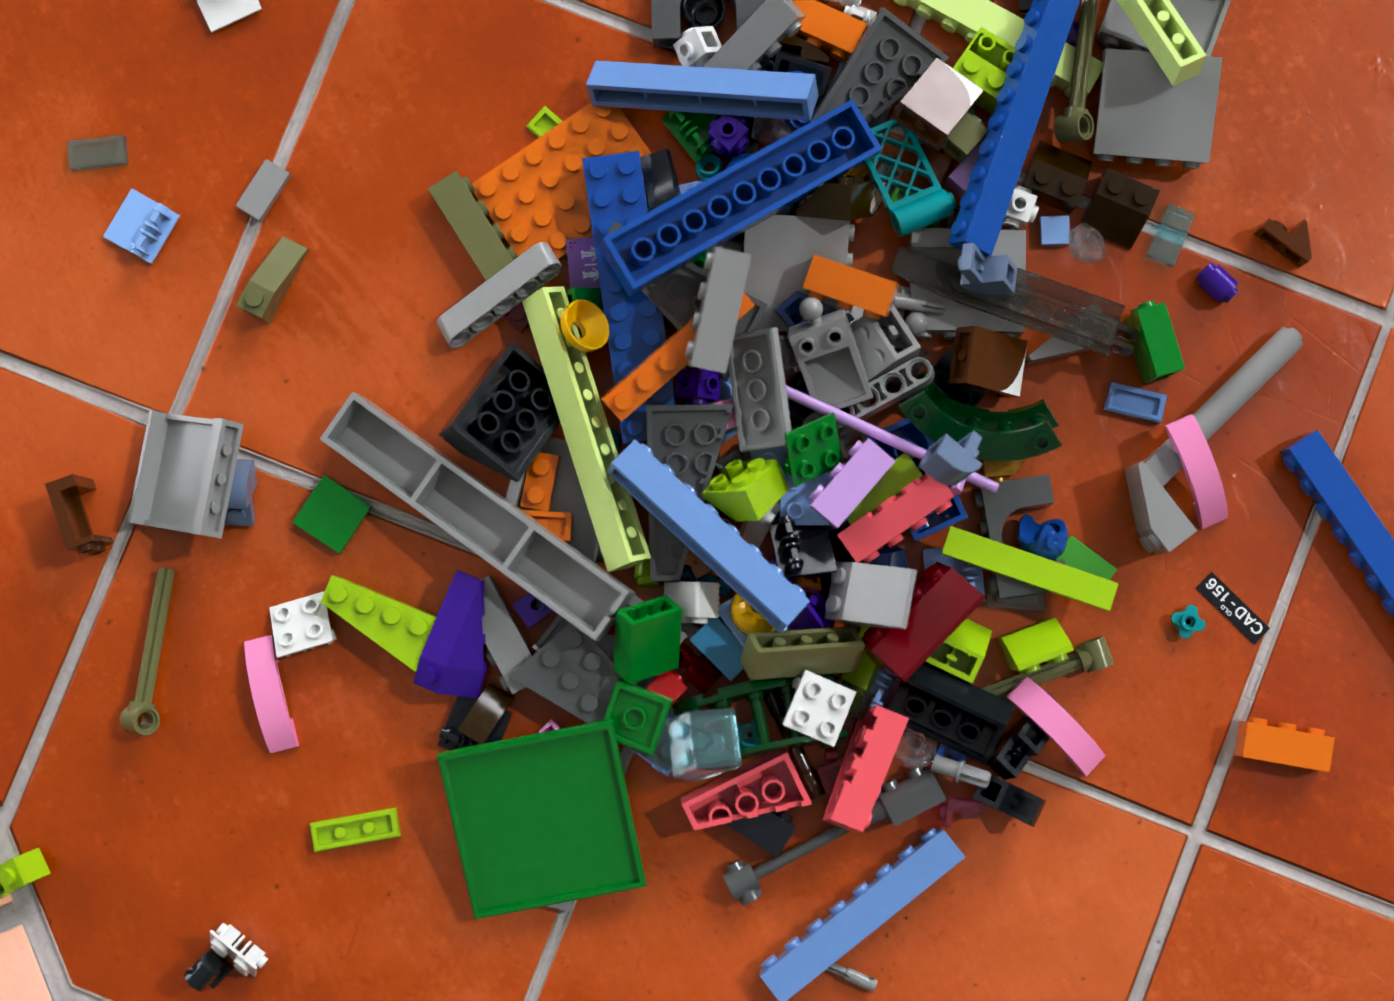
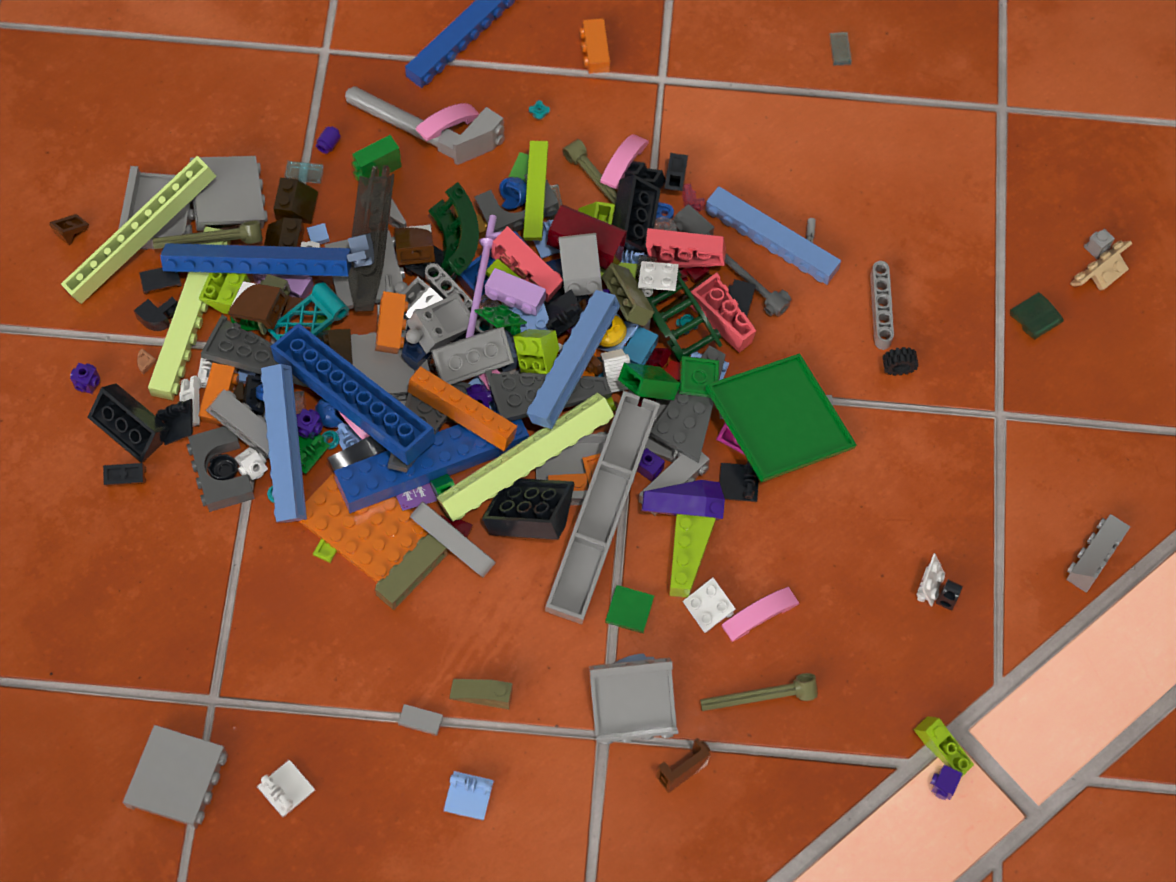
camera: 115 degrees left, 20 degrees down
(97, 152) = (423, 844): clear light blue tile -> none
(355, 829) = (828, 536): lime tile -> none
(486, 714) = (728, 472): dark brown slope -> none
(591, 323) = (461, 470): yellow piece -> none
(703, 744) = (701, 330): clear light blue slope -> none
(719, 309) = (431, 378): light grey brick -> none
(952, 461) = (484, 231): sand blue brick -> none
(961, 771) = (669, 199): light grey axle -> none
(1035, 644) = (580, 180): lime slope -> none
(1086, 244) = (323, 212): clear plate -> none
(1135, 402) = (414, 167): medium blue tile -> none
(1232, 608) = (523, 91): black sticker -> none
(1292, 246) = (291, 108): reddish brown slope -> none

